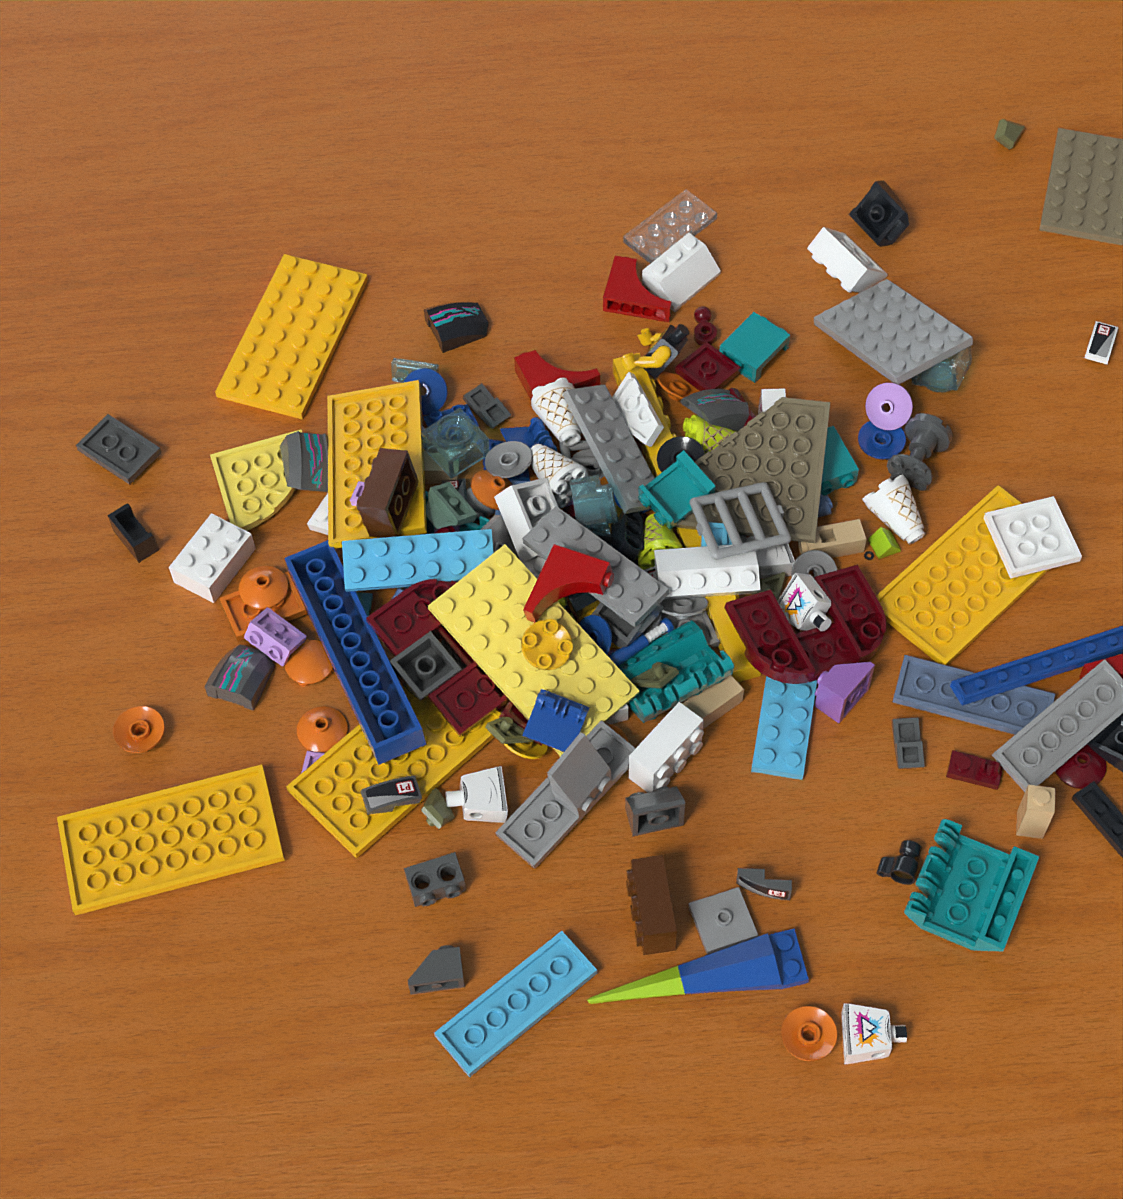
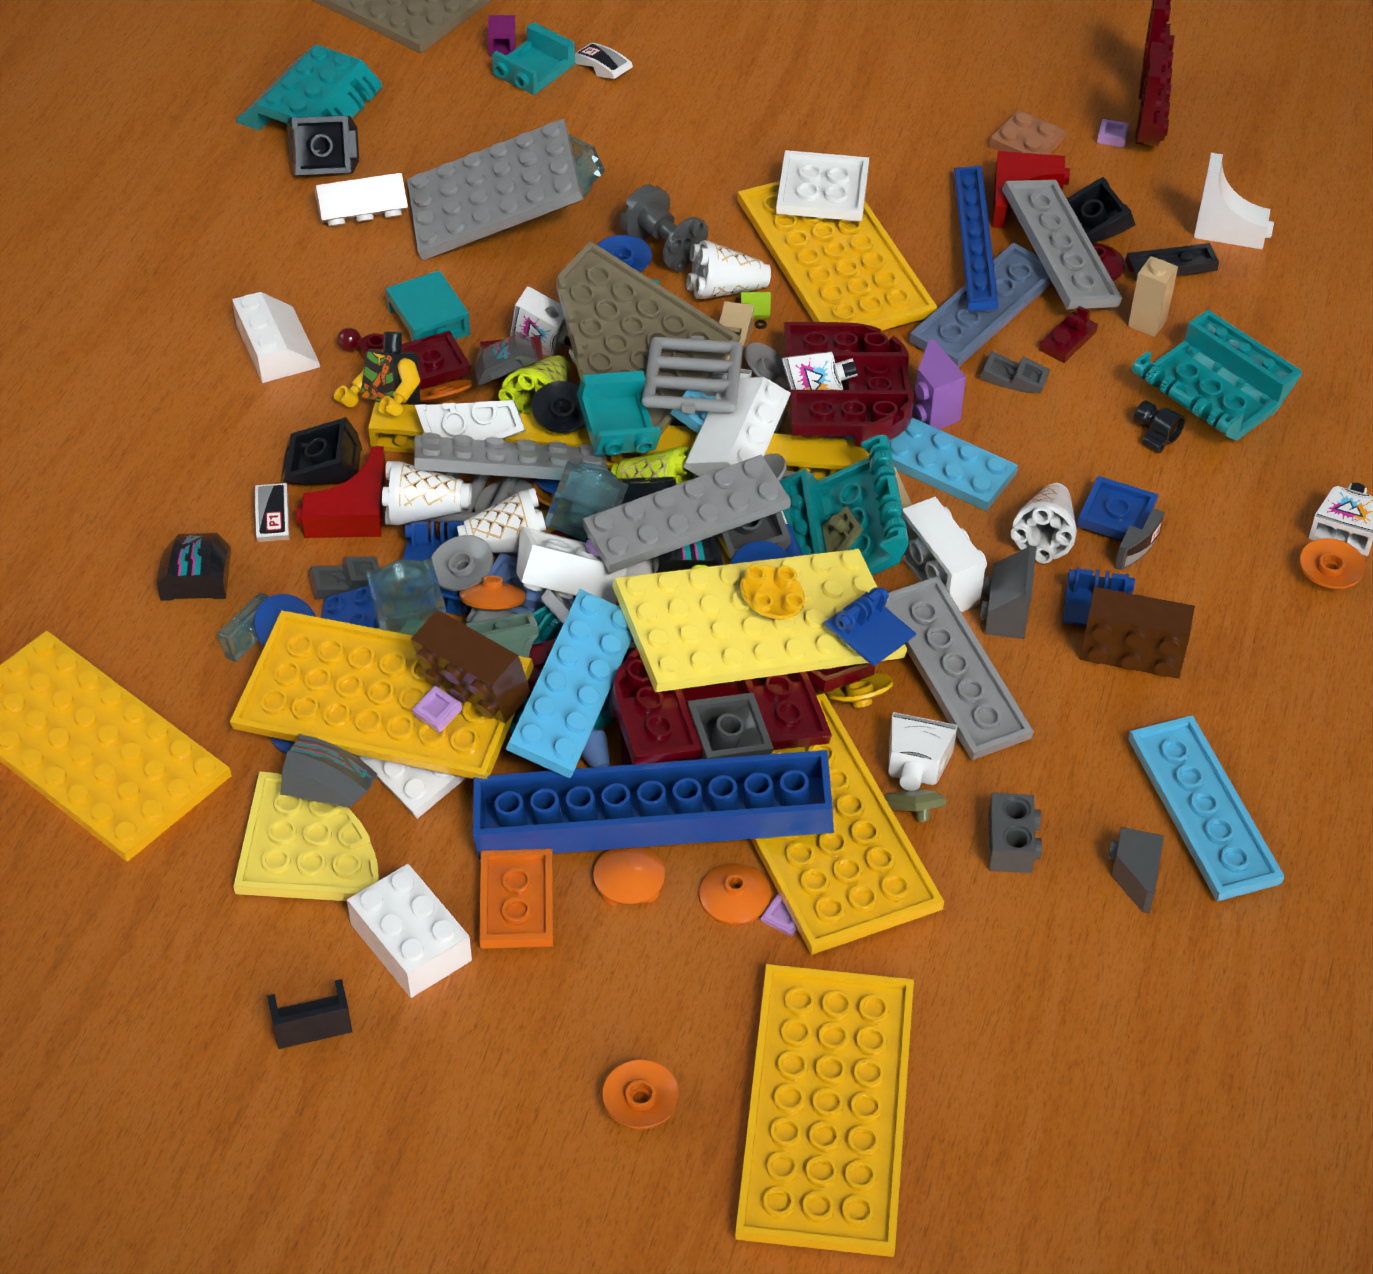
camera: 70 degrees left, 10 degrees down
(118, 449) = (146, 997): dark grey plate -> none
(240, 676) = (612, 956): dark grey slope -> none
(264, 595) = (492, 895): orange dish -> none
(274, 636) = (582, 890): lavender bracket -> none
(391, 793) = (883, 832): slope -> none
(507, 731) = (853, 685): olive piece -> none
(521, 341) = (272, 512): none -> slope
(567, 574) = (696, 529): red arch -> none
(579, 776) = (959, 628): light grey slope -> none
(582, 347) = (322, 454): none -> black slope
(629, 297) = (271, 392): red arch -> none
(669, 225) = (197, 324): clear plate -> none
(691, 874) = (1080, 592): none -> blue hinge
(722, 920) = (1170, 584): light grey plate -> none
(747, 811) = (1046, 524): none -> white cone
(756, 964) = (1231, 585): blue plate -> none
(791, 858) = (1115, 507): none -> blue plate
(899, 401) = (585, 225): lavender dish -> none
(939, 185) = (314, 86): none -> teal slope
(1008, 133) = (280, 23): olive piece -> none
(1069, 301) = (536, 60): none -> teal panel
(1084, 268) = (501, 34): none -> magenta brick

